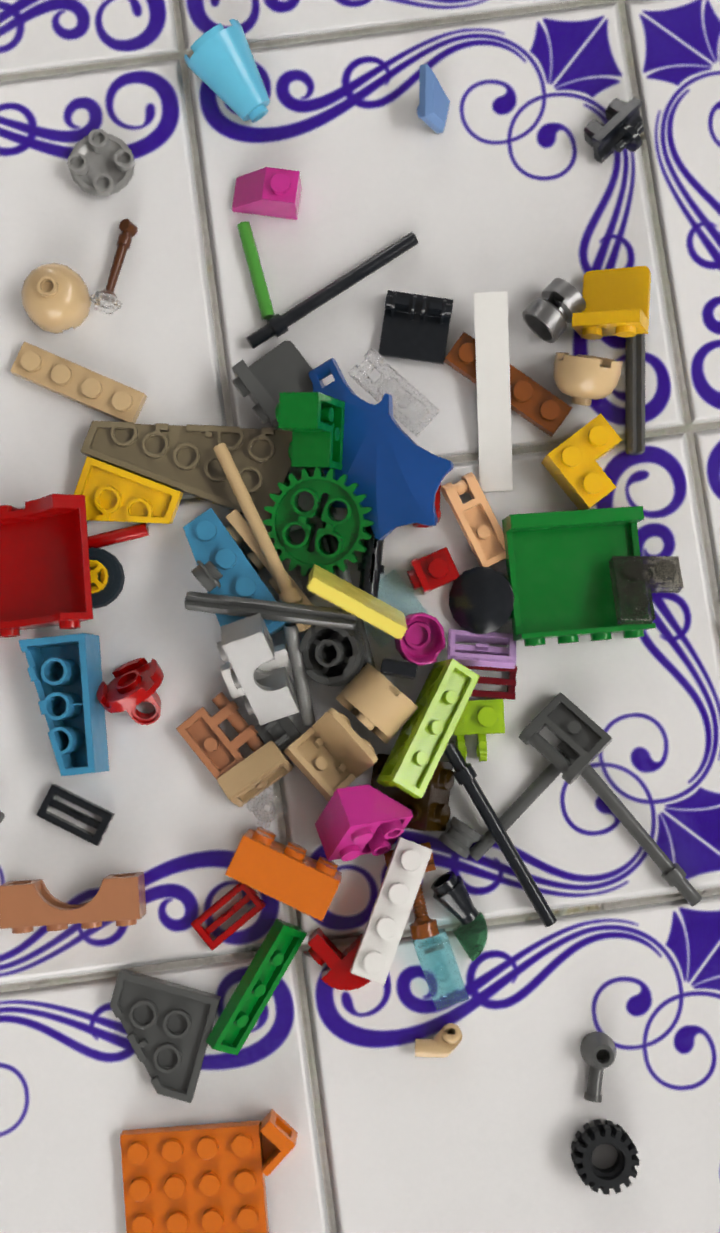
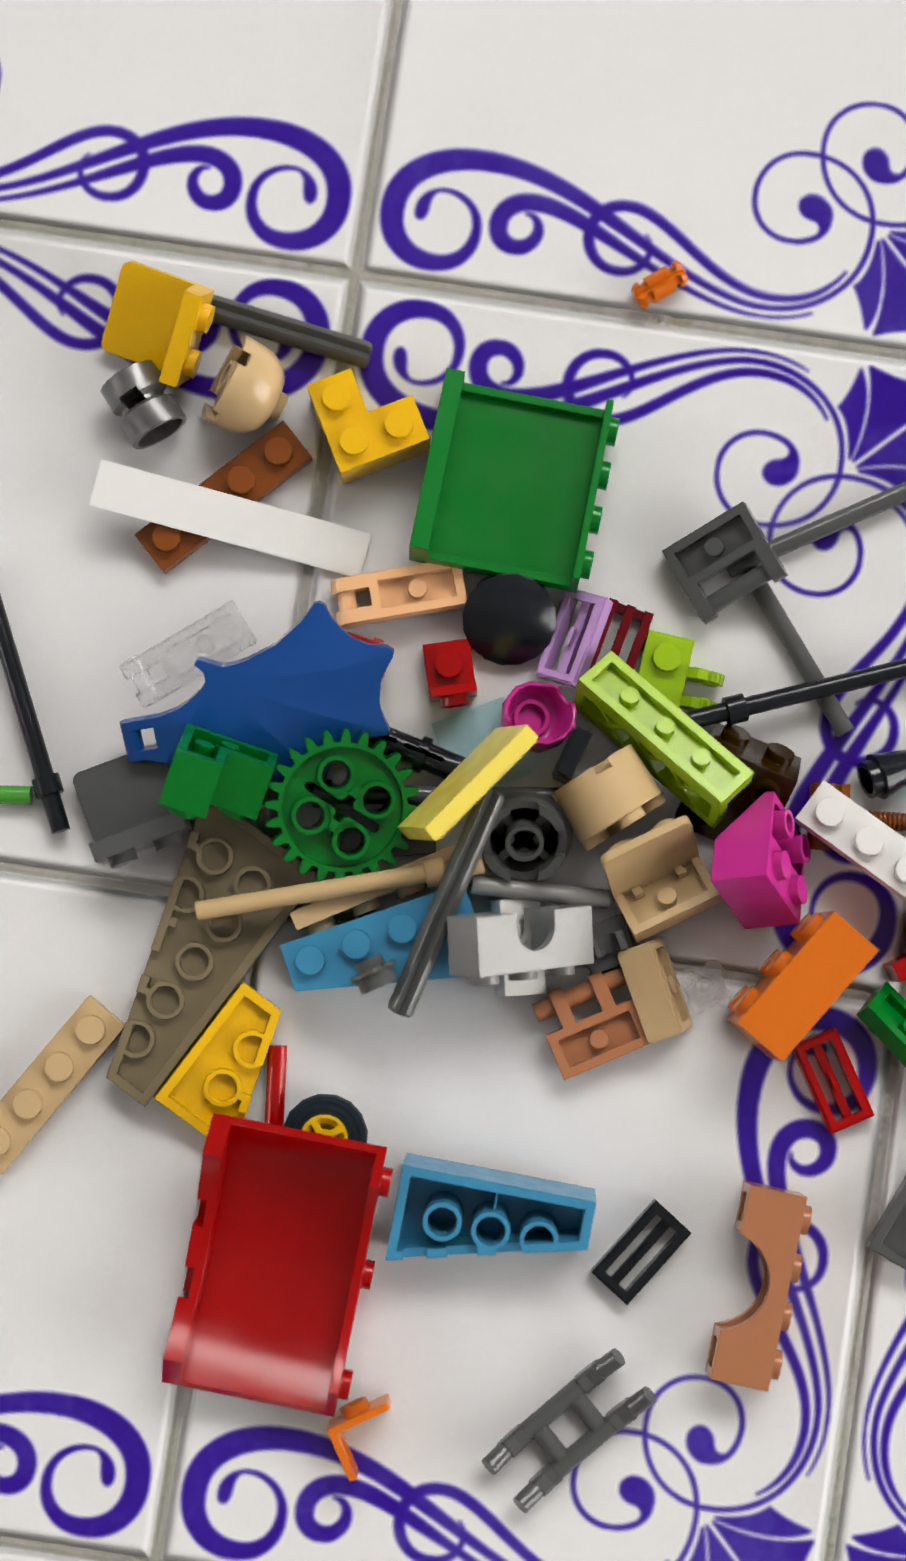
camera: 75 degrees left, 0 degrees up
(132, 685) = (492, 1123): red tile -> none
(415, 327) = (107, 597): black hinge -> none
(460, 837) = (816, 740): dark grey wheel -> none
(635, 581) = (542, 407): clear smoke plate -> none

